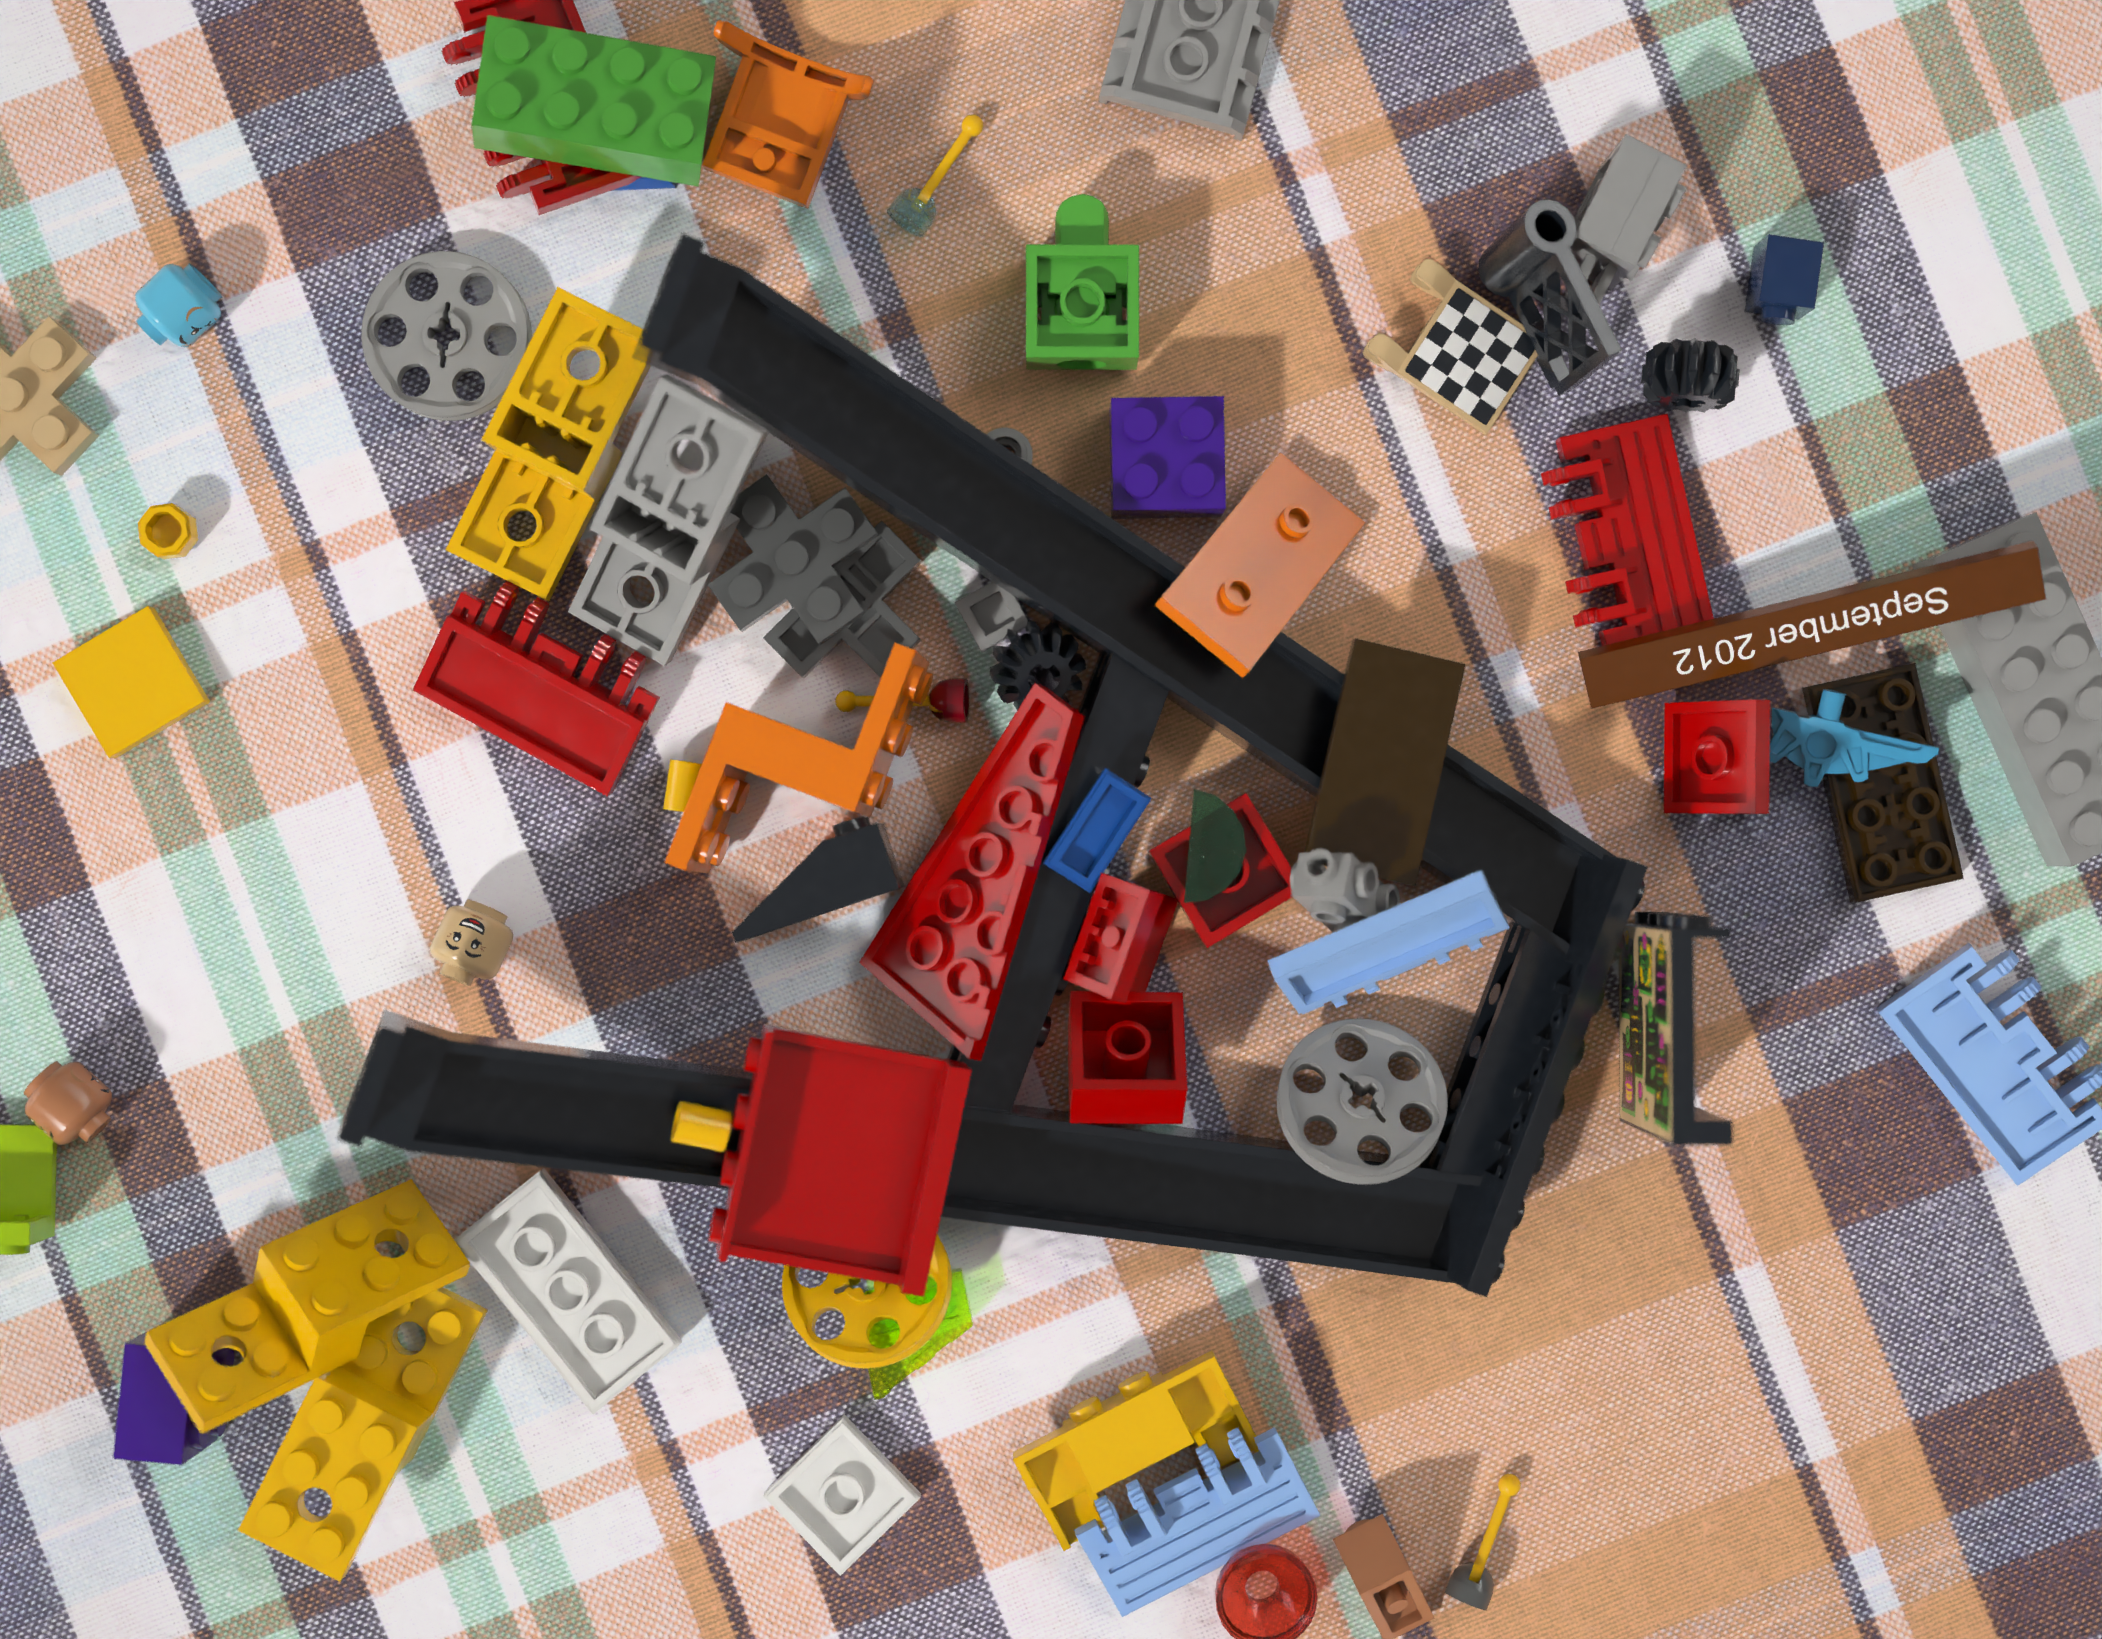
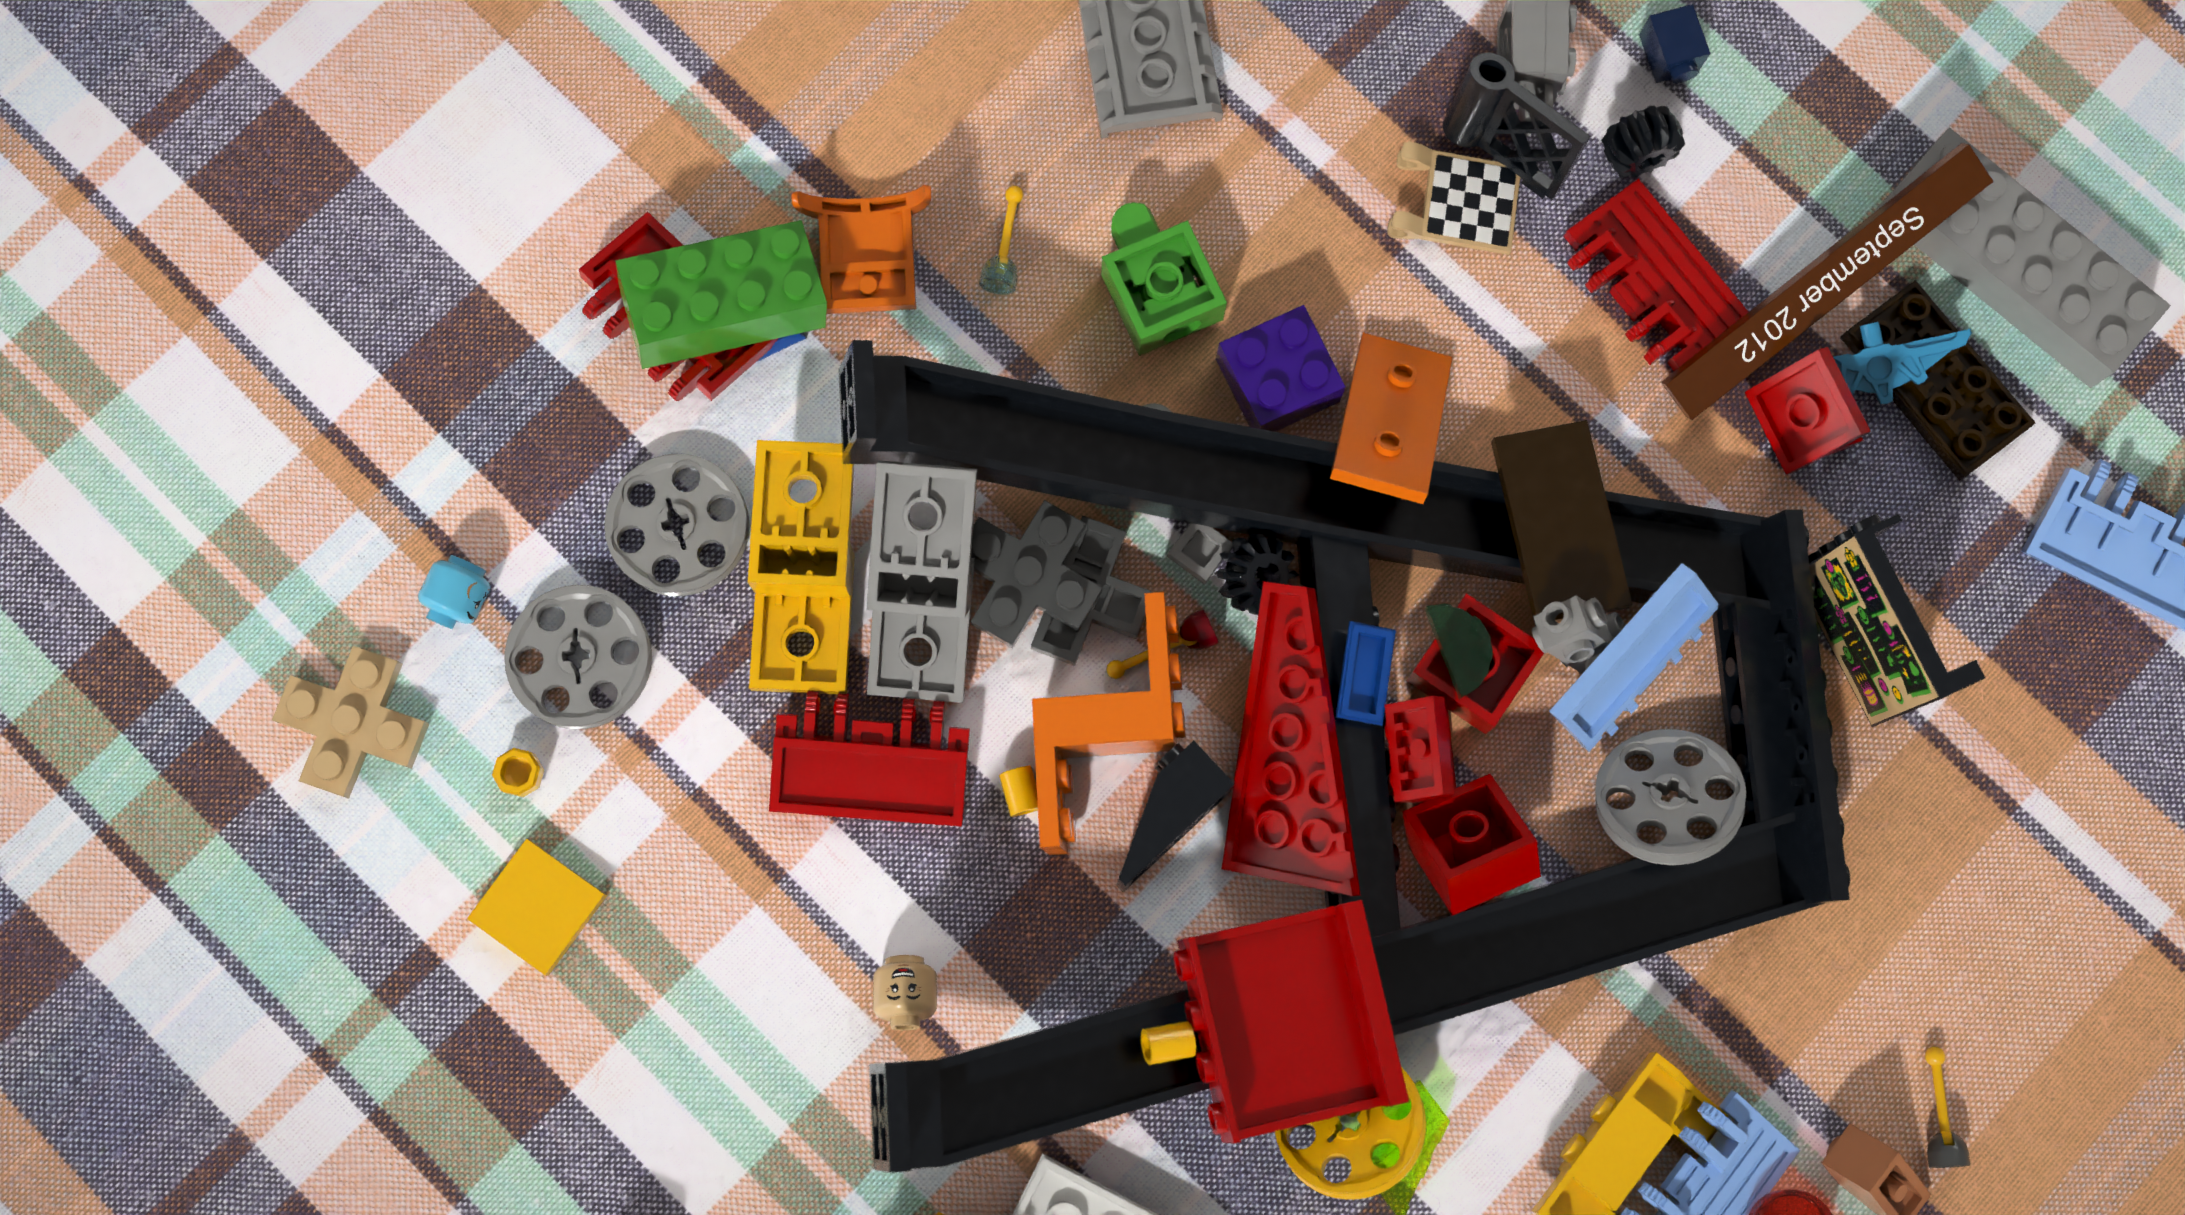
camera: 25 degrees left, 10 degrees down
(262, 413) = (559, 644): none -> light grey wedge

